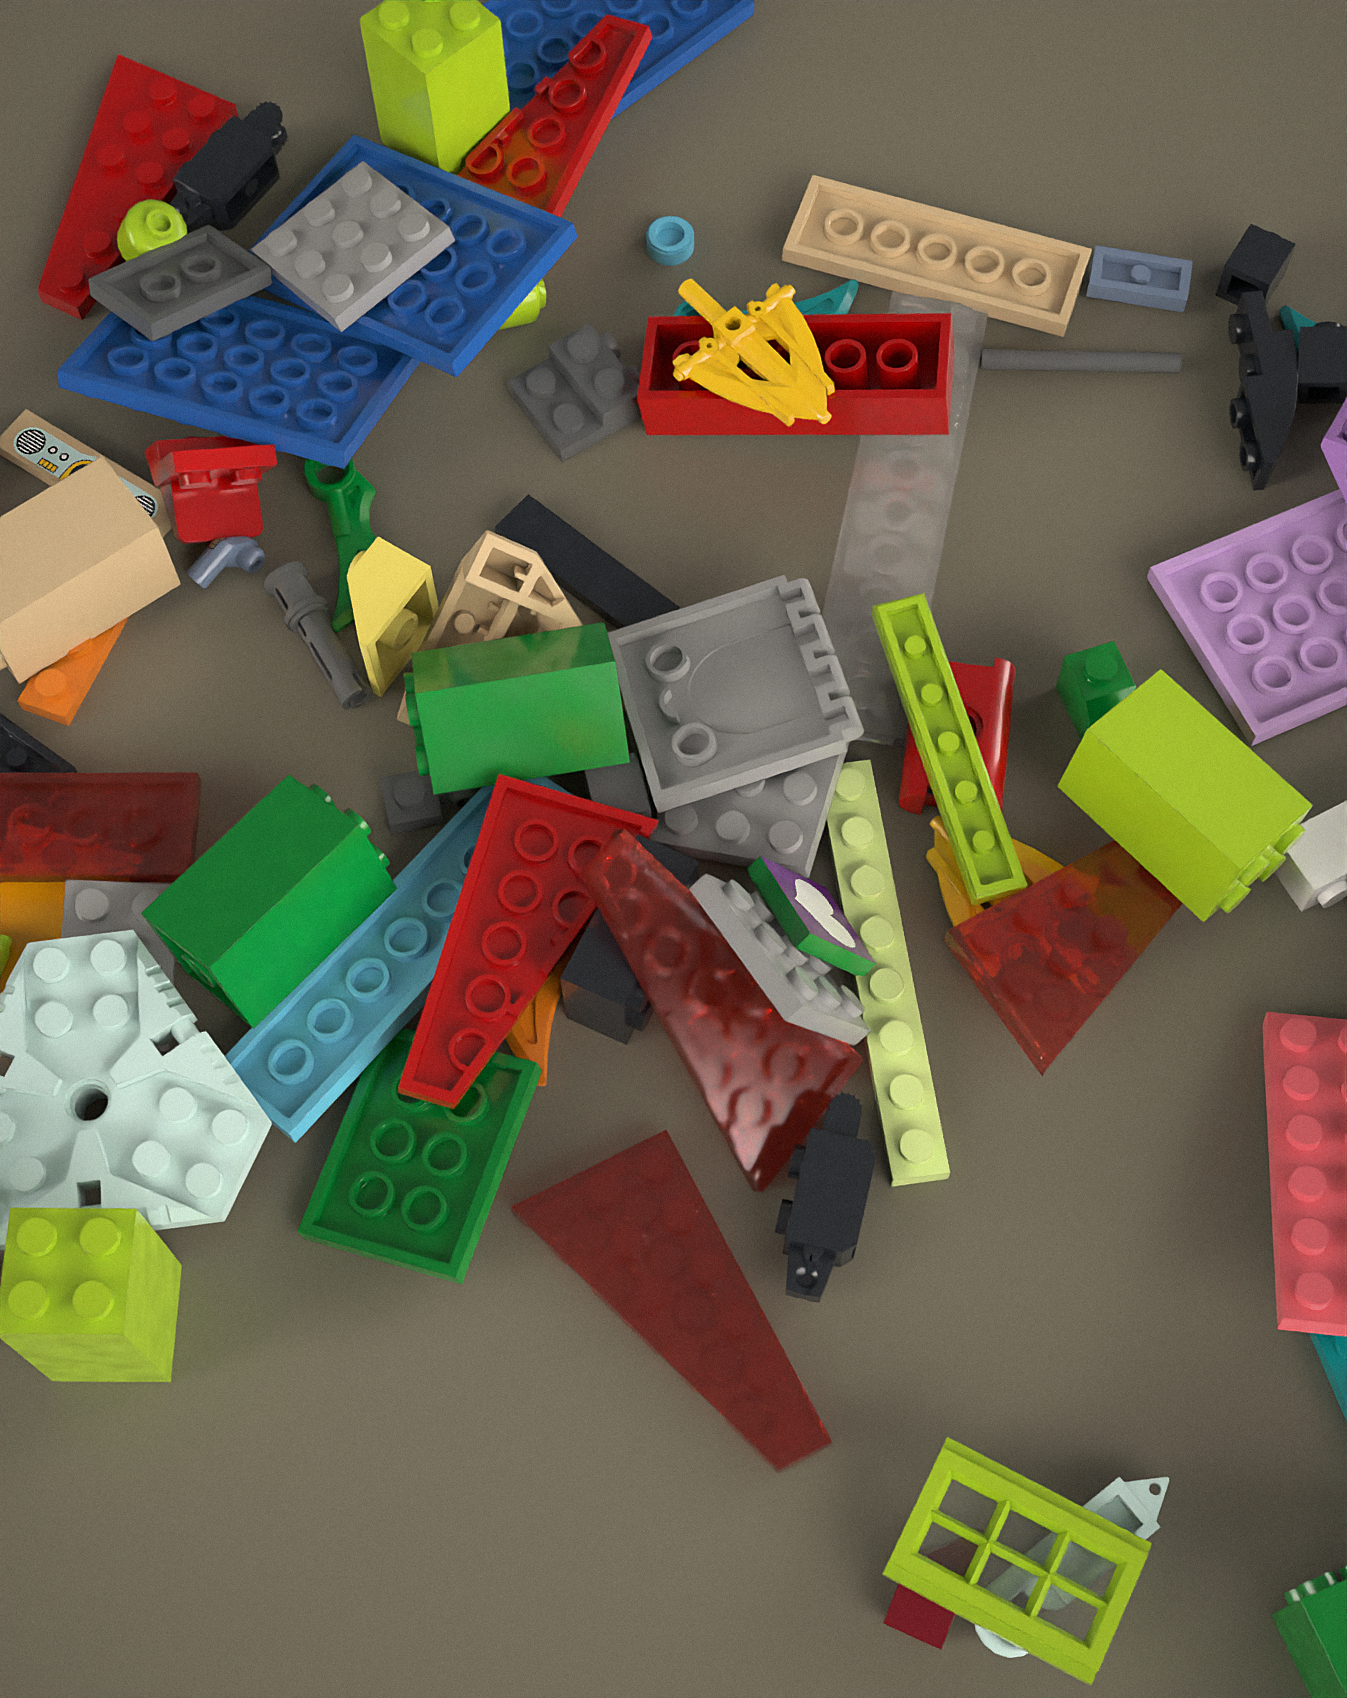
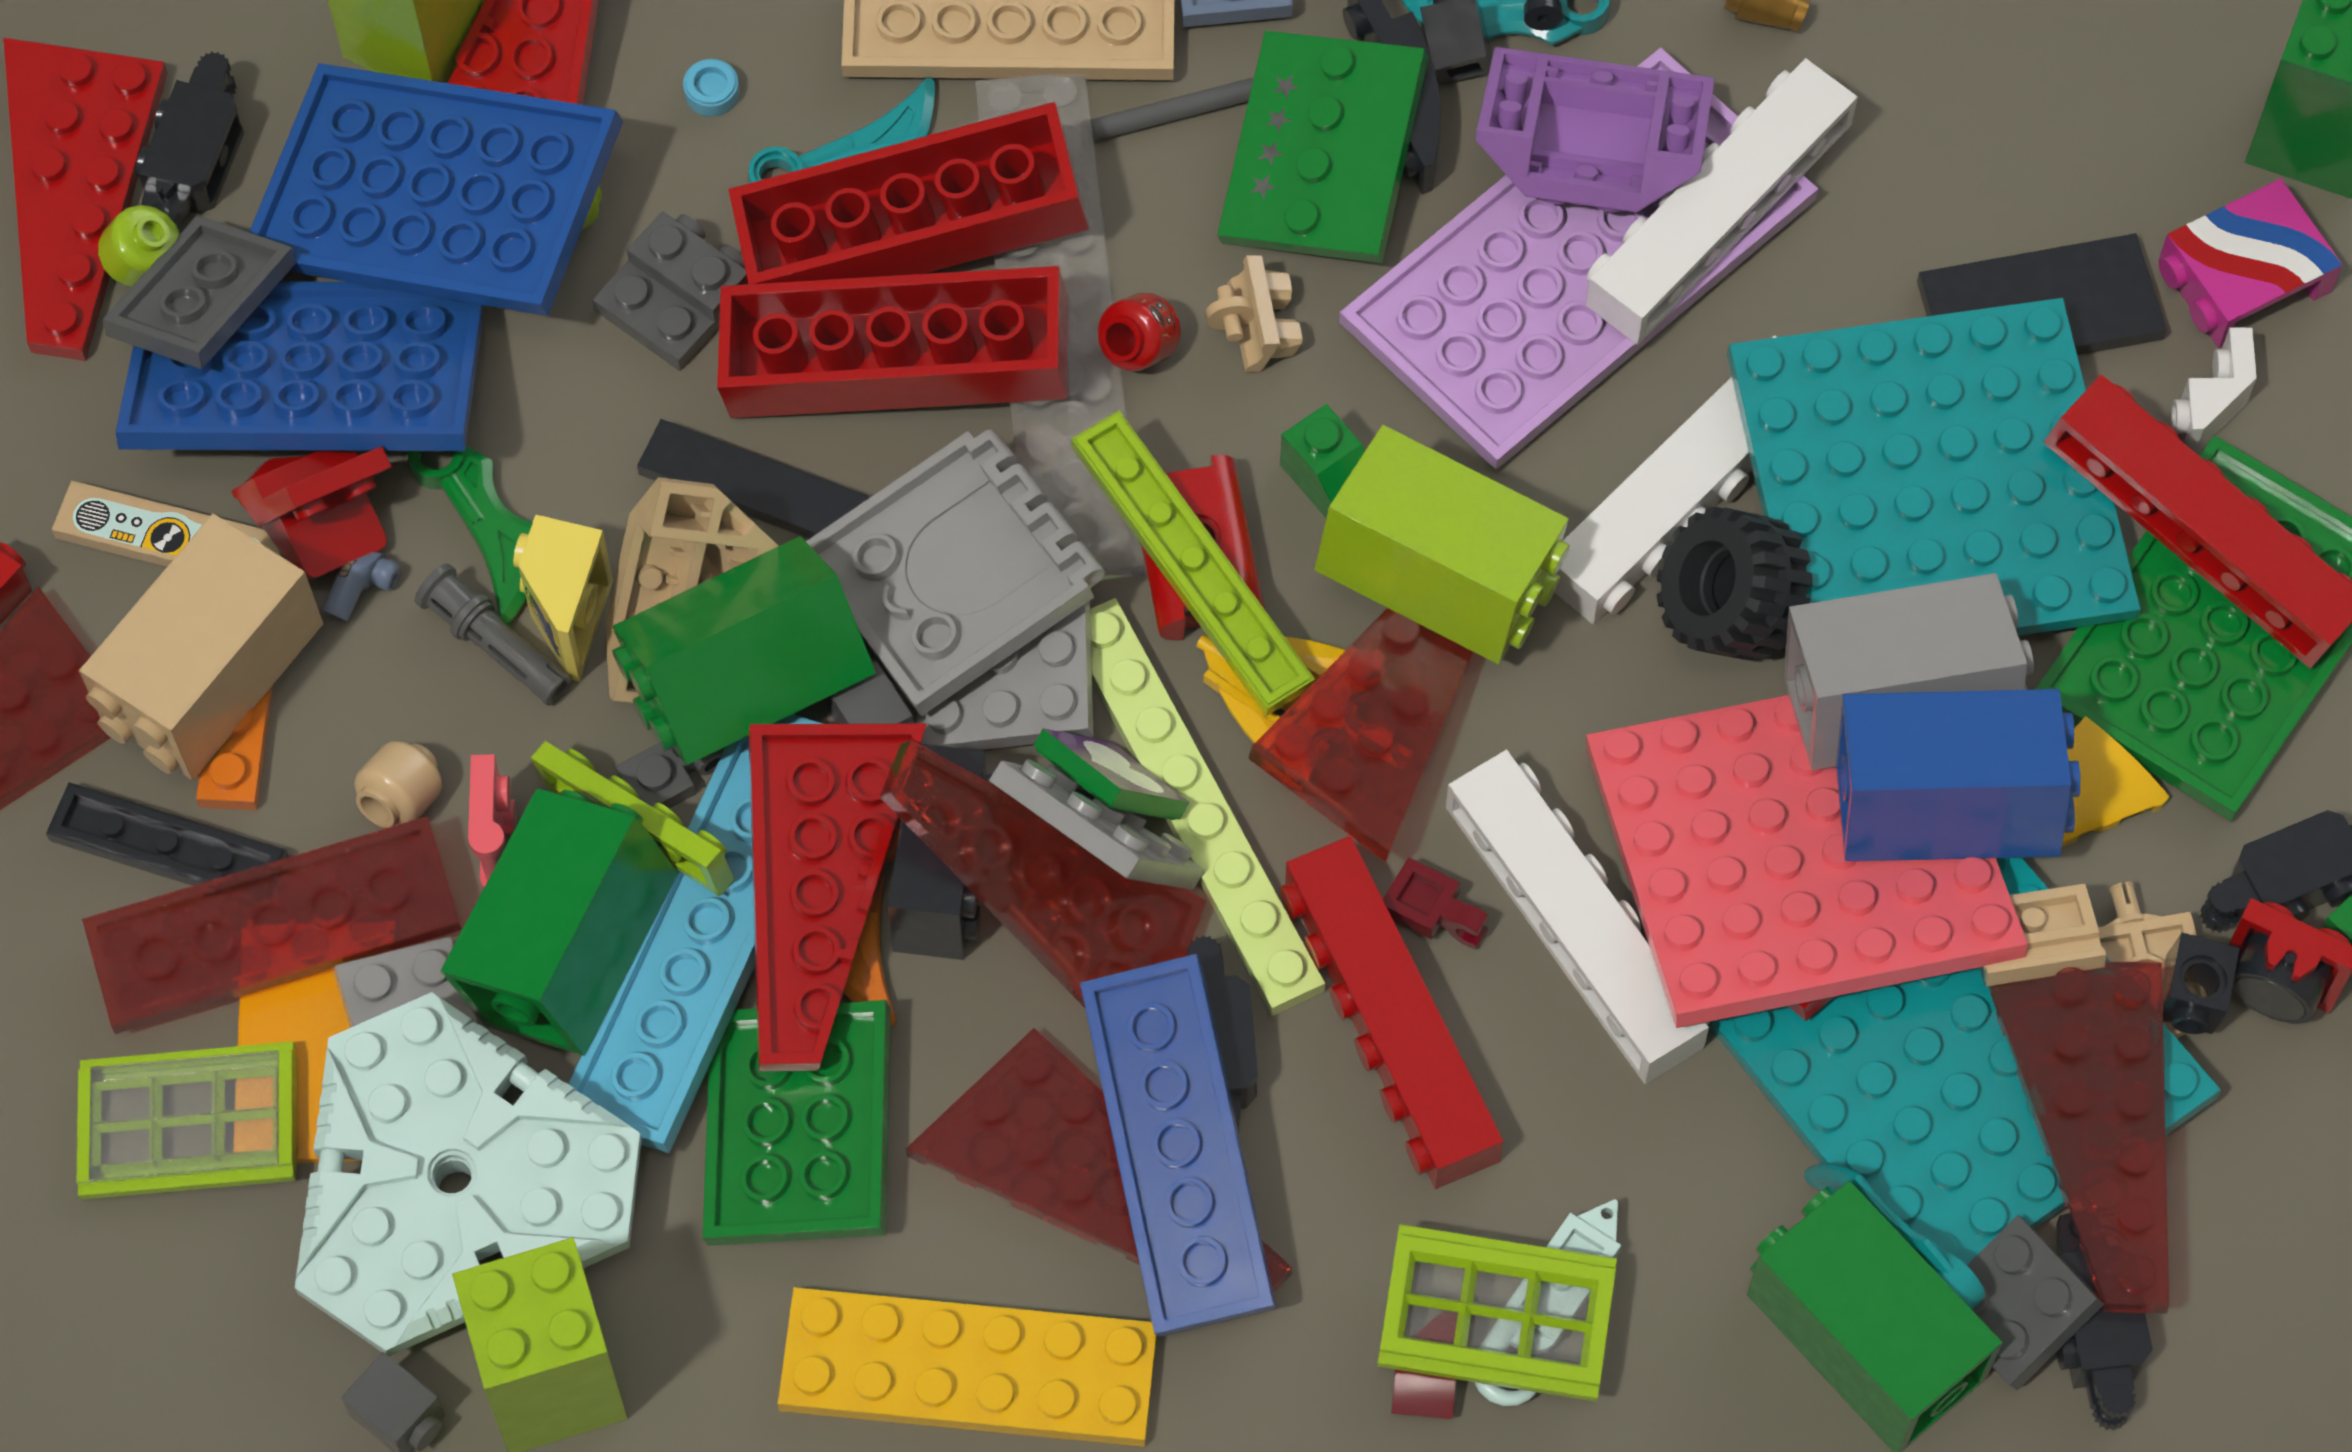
camera: 20 degrees left, 0 degrees up
(187, 737) = (397, 784): none -> tan head
(245, 780) = (490, 813): none -> coral plate
(353, 245) = (375, 197): light grey plate -> none
(414, 877) = (695, 855): none -> lime plate
(498, 1438) = (968, 1367): none -> yellow plate
(747, 482) = (893, 342): none -> red brick
(758, 1293) = (1177, 1146): none -> blue plate
(787, 389) = (909, 233): yellow bar -> none
(965, 534) = (1139, 331): none -> red head
(1005, 1224) = (1392, 1013): none -> red brick
(1067, 545) = (1248, 315): none -> tan hips
(1071, 1124) = (1428, 899): none -> dark red plate
(1179, 422) = (1323, 146): none -> green plate
(1207, 1178) = (1572, 911): none -> white brick

